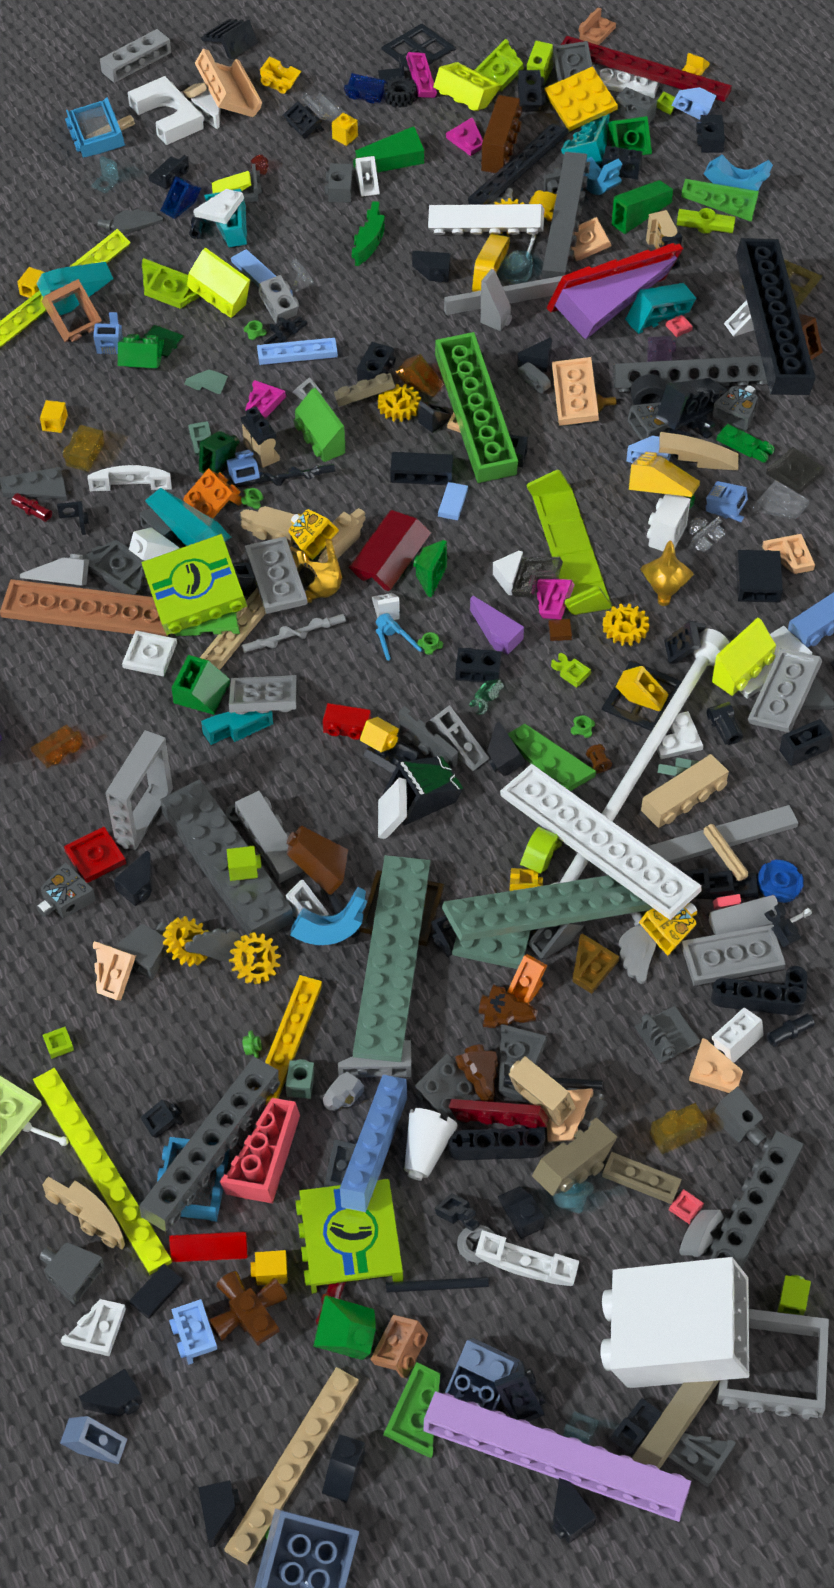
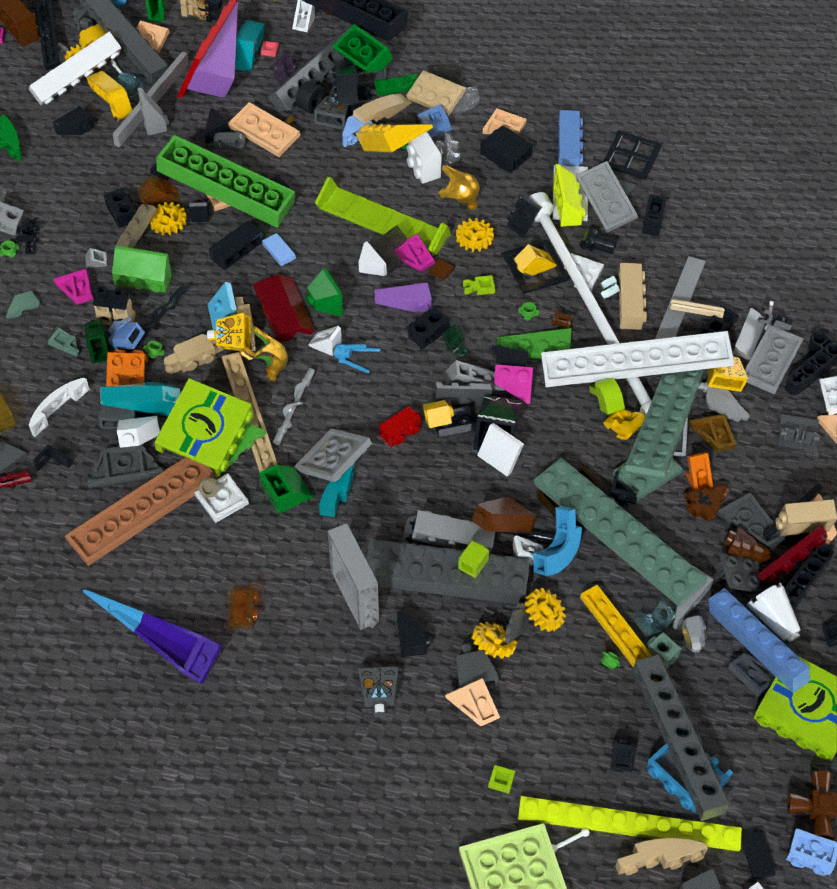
camera: 50 degrees left, 0 degrees up
(64, 570) = (93, 499): light grey slope -> none
(95, 855) = (362, 647): red plate -> none
(144, 634) = (209, 487): none -> dark tan tile
(208, 1246) = (750, 798): red slope -> none
(262, 1160) = (710, 714): coral wedge -> none
(269, 1266) = (798, 770): yellow brick -> none
(276, 575) = (242, 378): light grey plate -> none
(297, 351) = (56, 239): light blue plate -> none
(324, 1052) = (654, 622): none -> clear light blue bracket
(341, 504) = (222, 304): none -> medium azure plate
(430, 638) = (381, 336): bright green plate -> none
(483, 768) = (515, 380): none -> dark pink wing
(727, 901) = (734, 331): coral tile -> none
(737, 385) = (363, 50): none -> green slope
(763, 476) = (433, 90): none -> tan plate
(781, 880) = (731, 300): blue tile -> none

